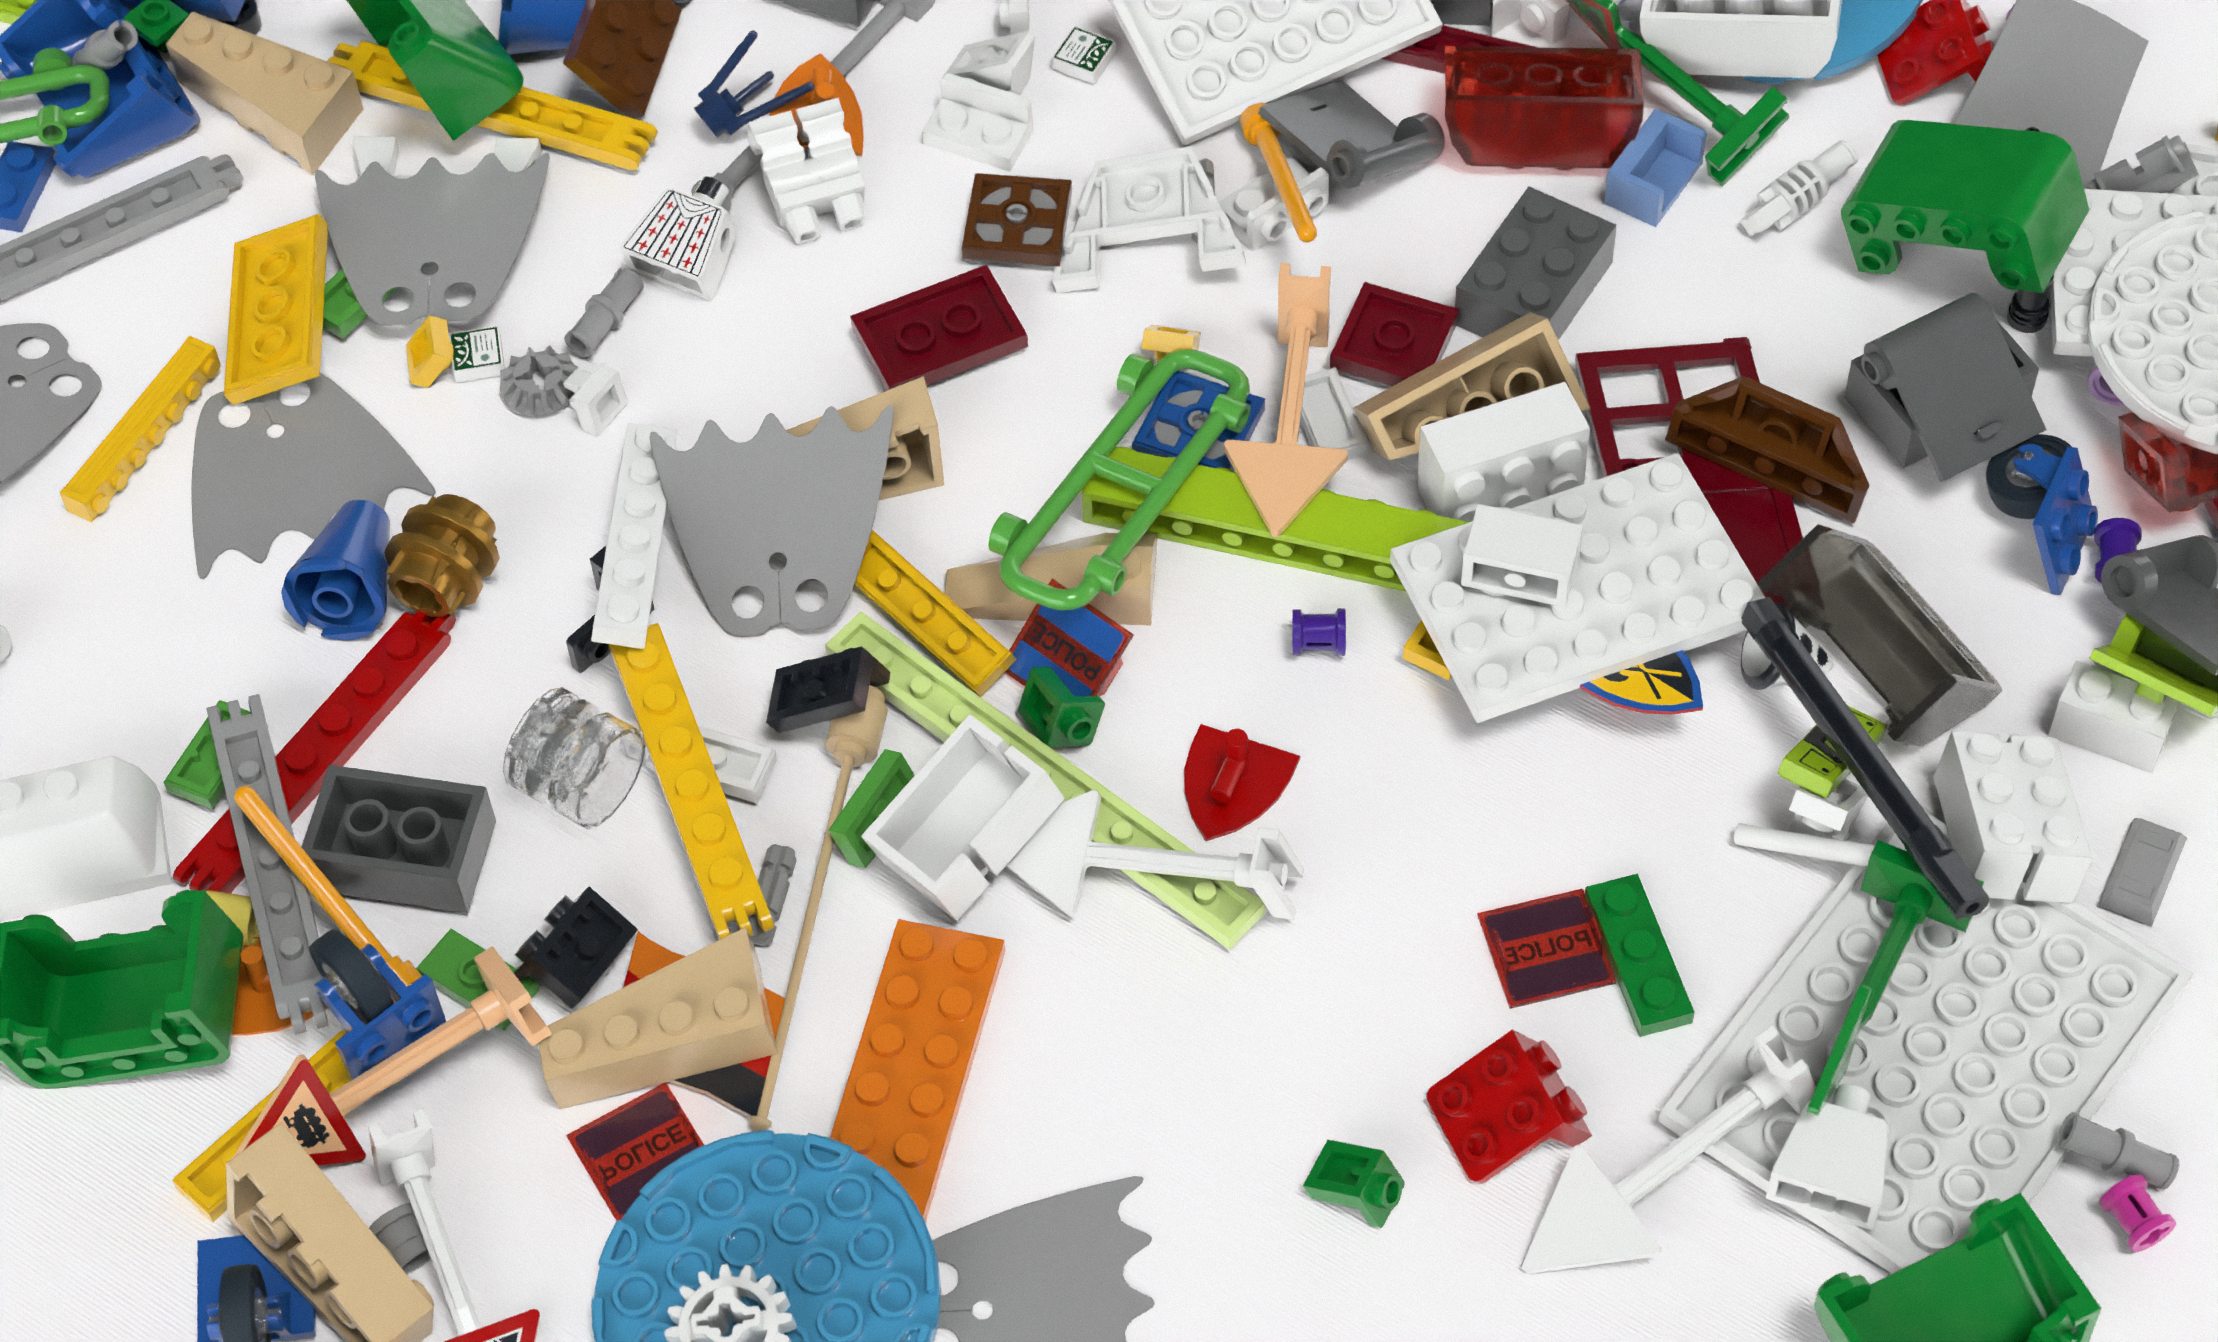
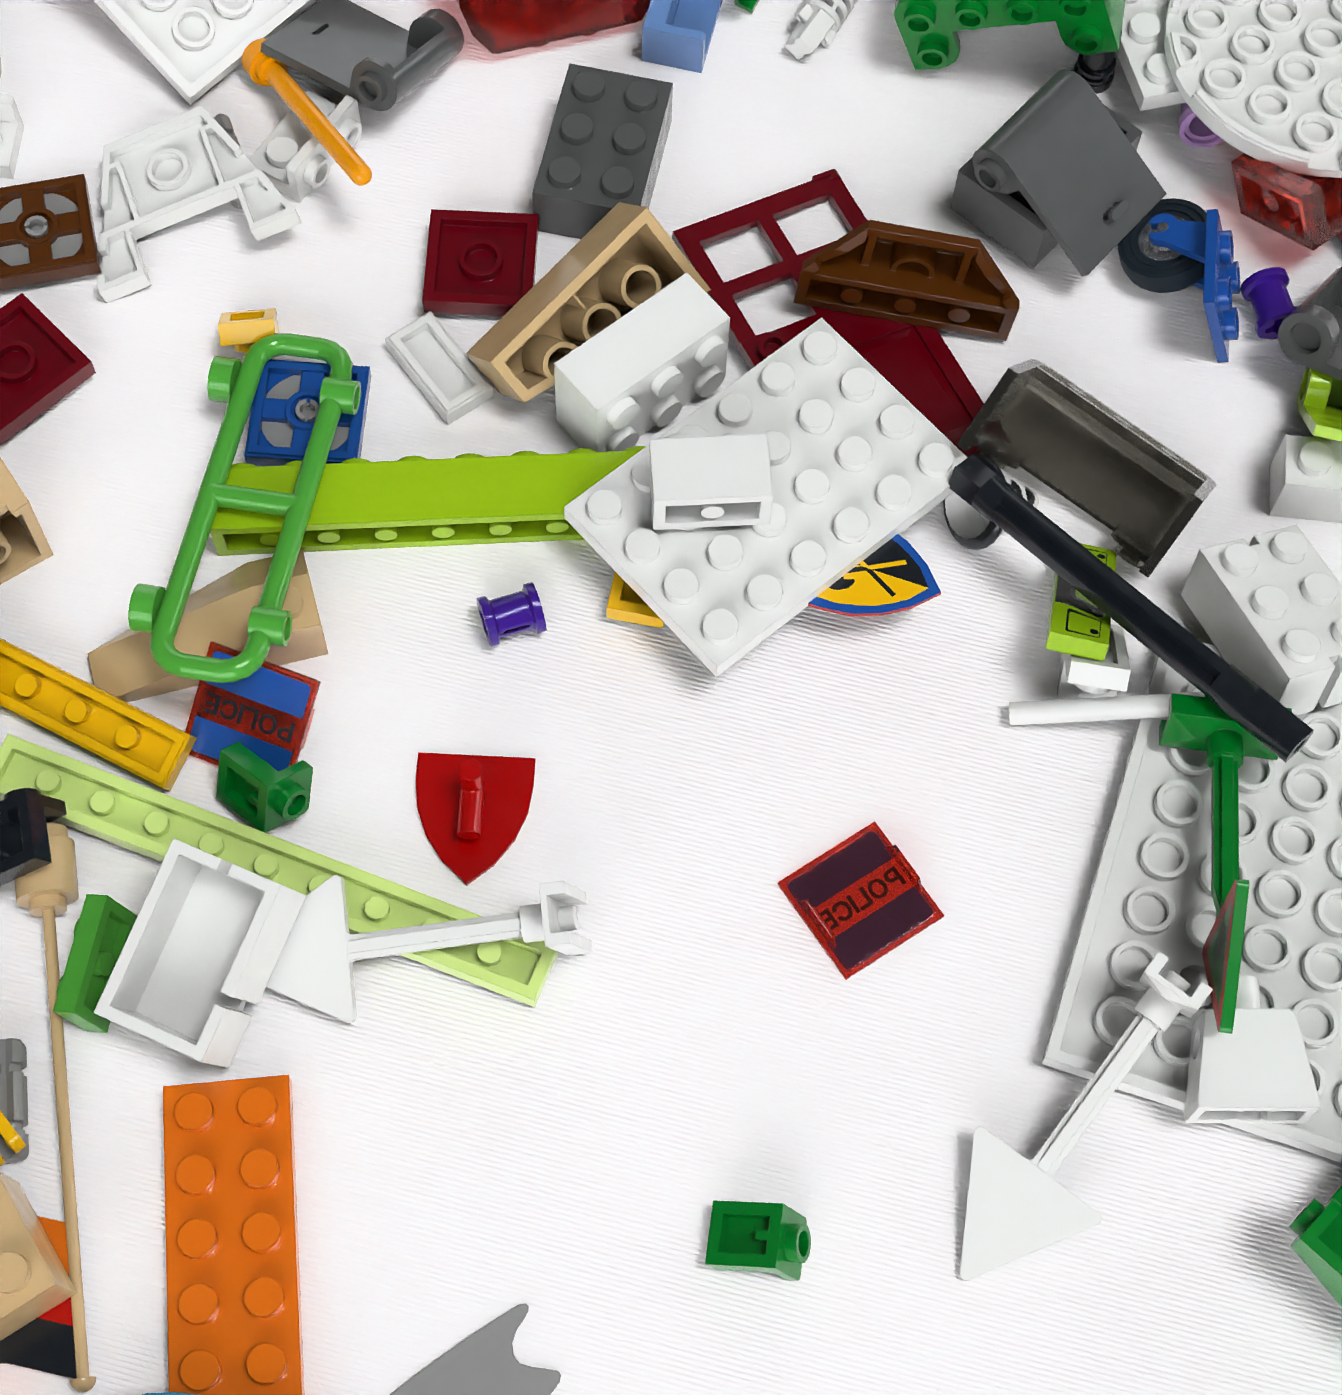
camera: 25 degrees left, 10 degrees up
(1083, 55) = (51, 30): tile -> none
(1284, 474) = (420, 449): light nougat piece -> none
(1506, 1105) = (886, 1101): red bracket -> none
(1639, 955) = (959, 880): green plate -> none

